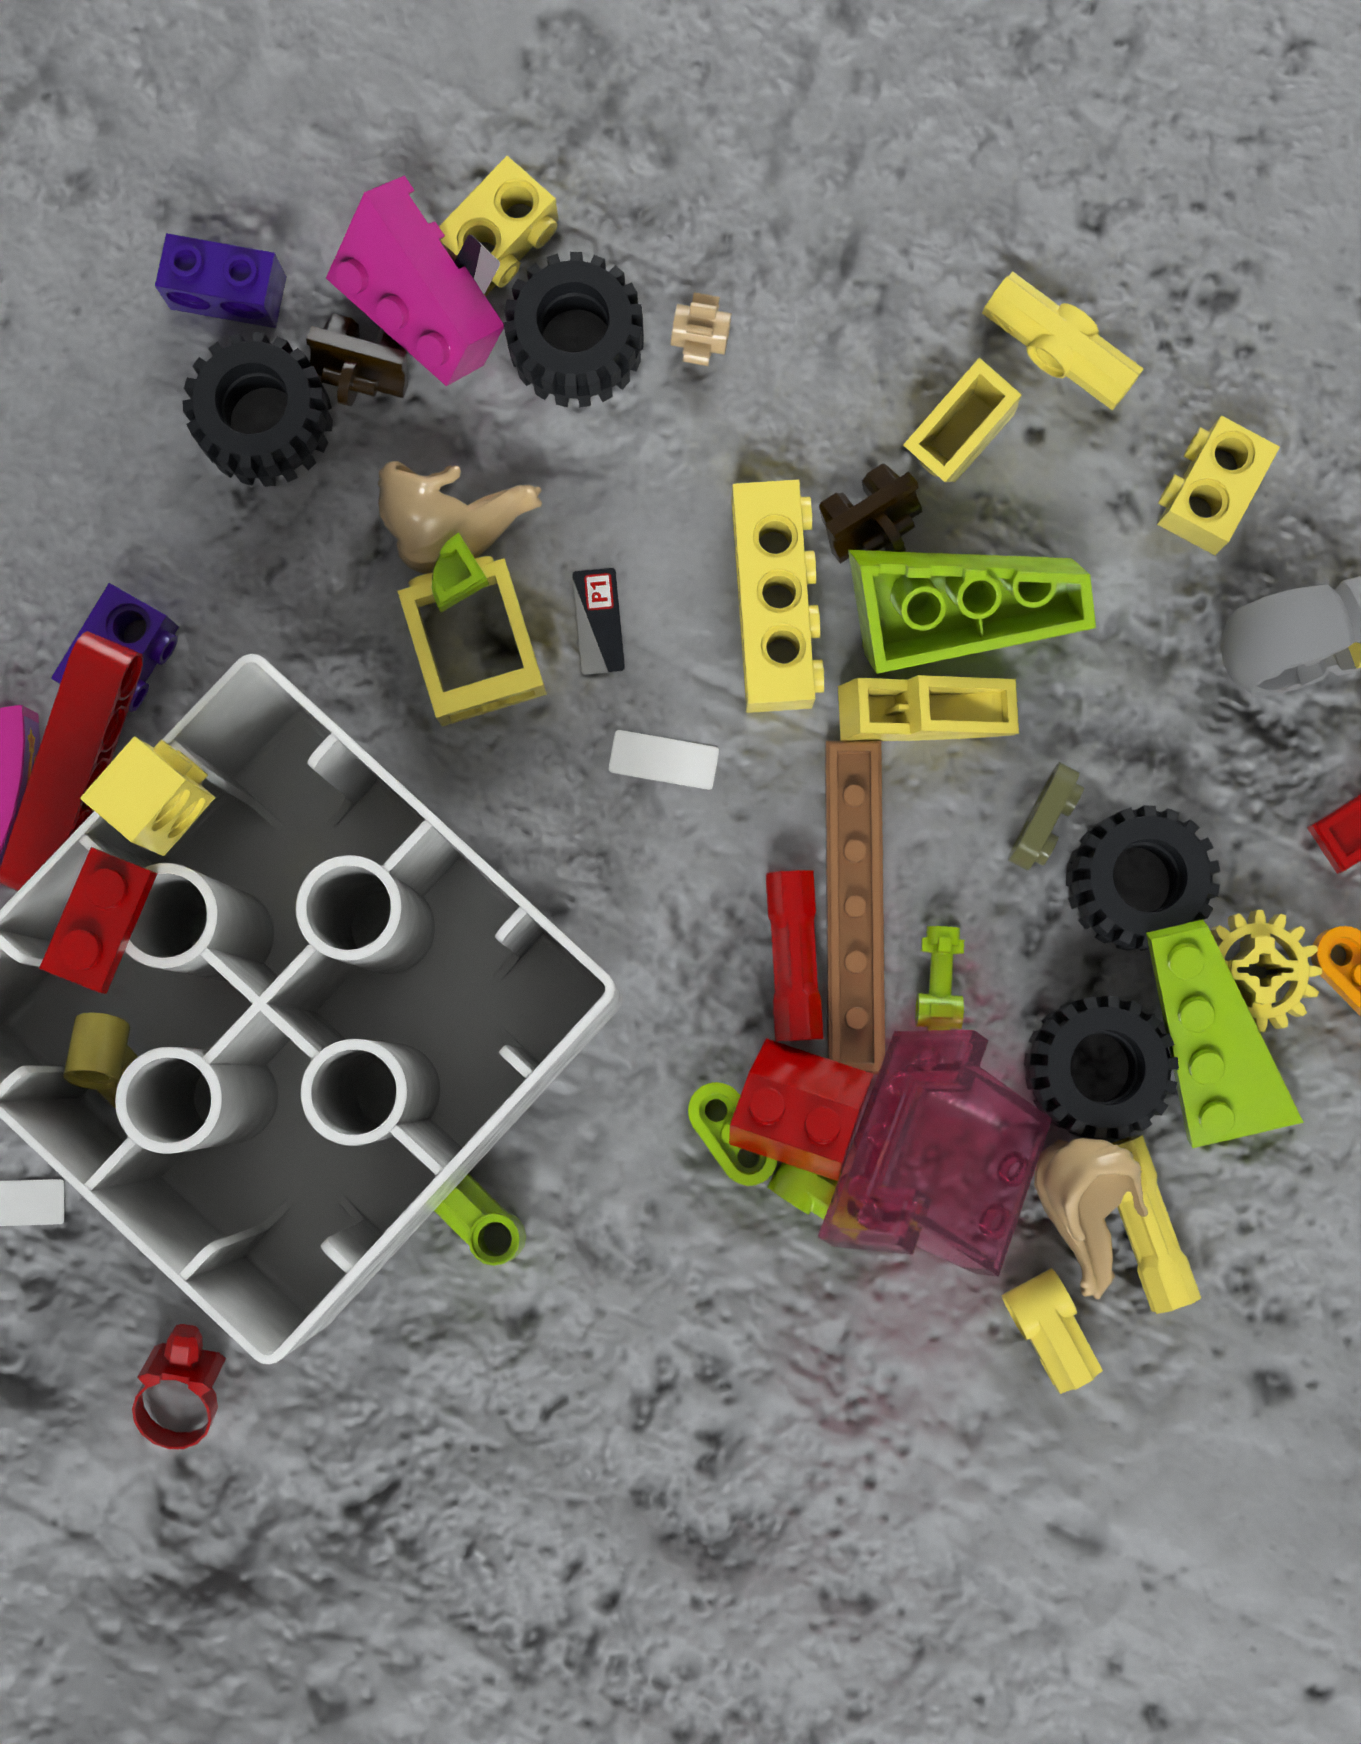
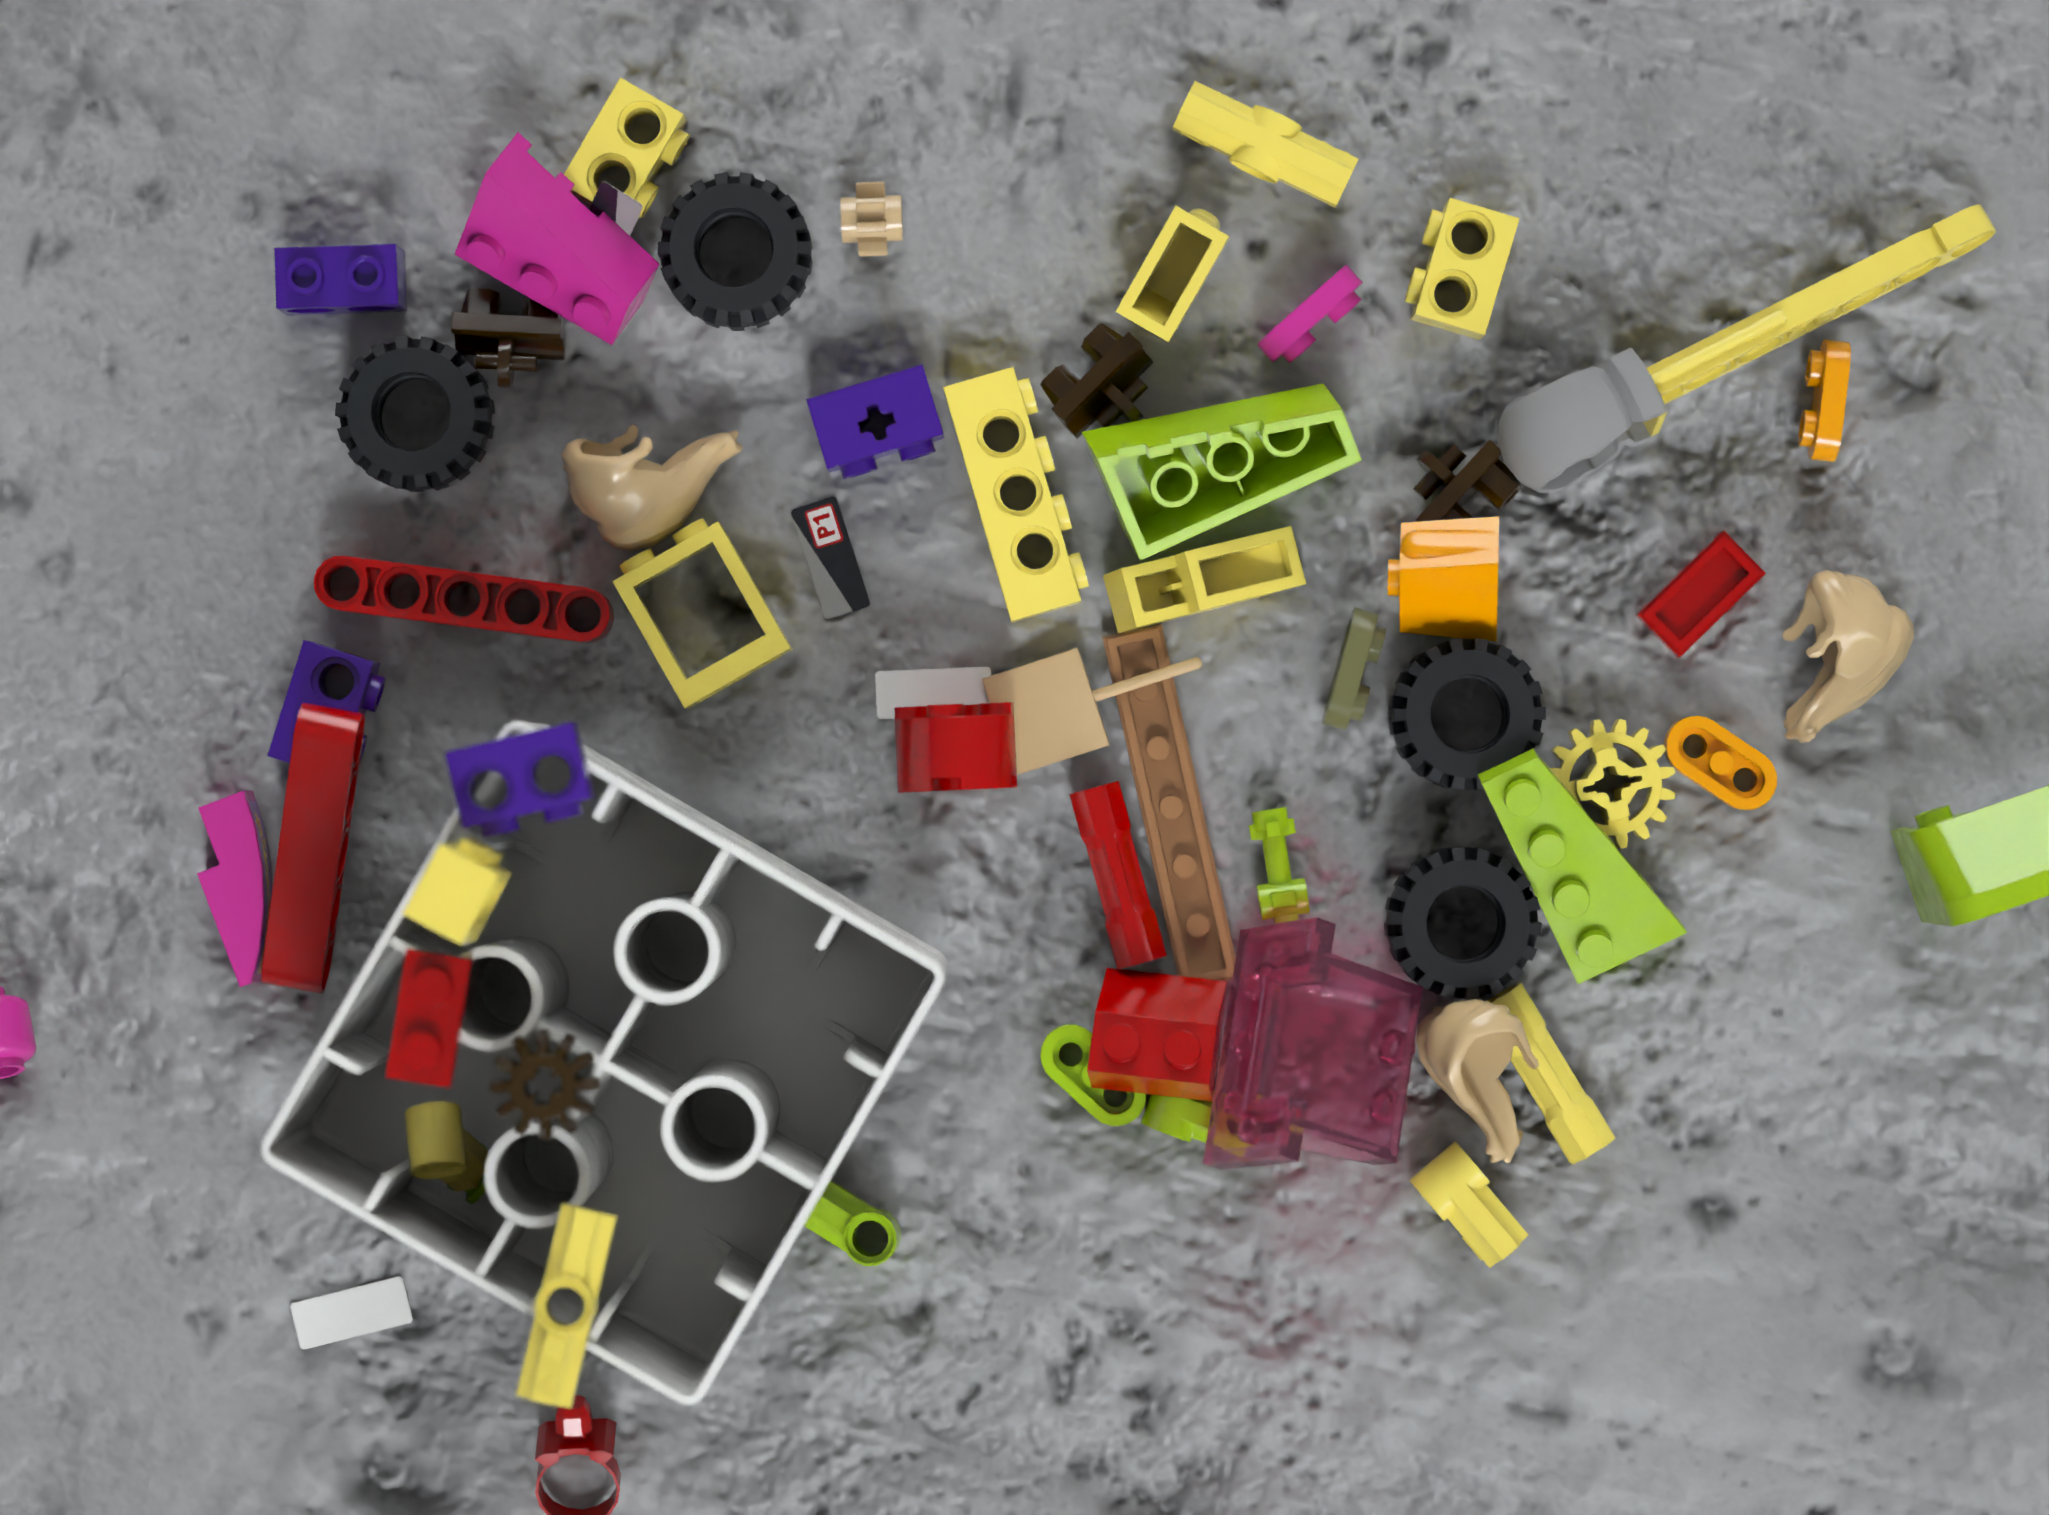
camera: 10 degrees left, 5 degrees up
(141, 1275) = (555, 1347): none -> light yellow piece
(185, 987) = (530, 1069): none -> dark brown gear
(244, 564) = (435, 592): none -> red beam
(245, 686) = (518, 762): none -> dark purple brick
(456, 574) = (671, 551): lime tile -> none
(671, 807) = (955, 747): none -> red brick
(694, 497) = (899, 395): none -> dark purple brick
(766, 794) = (1058, 708): none -> tan piece
(1091, 487) = (1293, 333): none -> dark pink plate
(1153, 749) = (1447, 578): none -> light orange torso
(1158, 697) = (1482, 474): none -> dark brown hips

